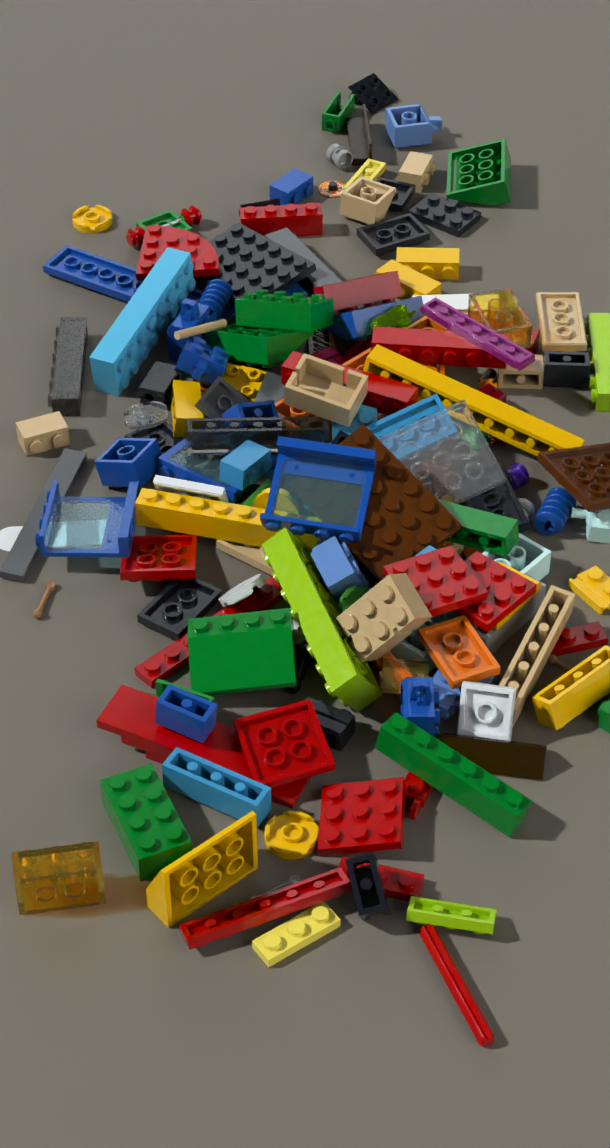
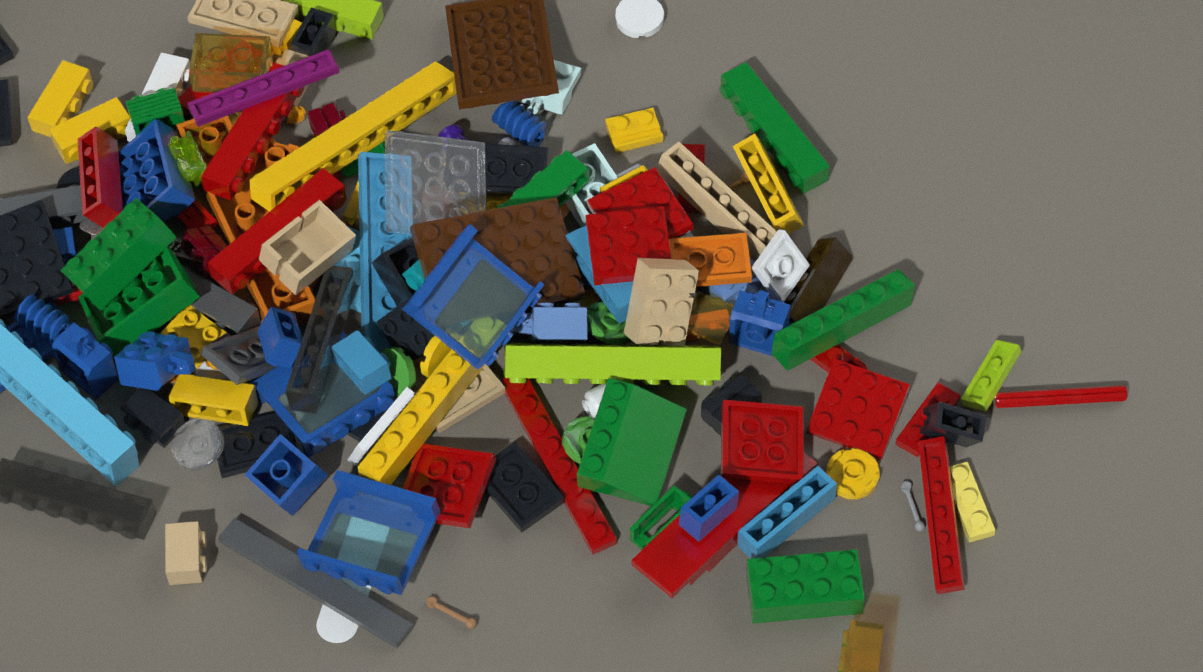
camera: 70 degrees left, 15 degrees up
(200, 329) = (111, 342): tan bar -> none
(204, 871) = (891, 548): yellow slope -> none
(241, 590) = (529, 422): white tile -> none
(430, 289) = (160, 105): none -> green brick

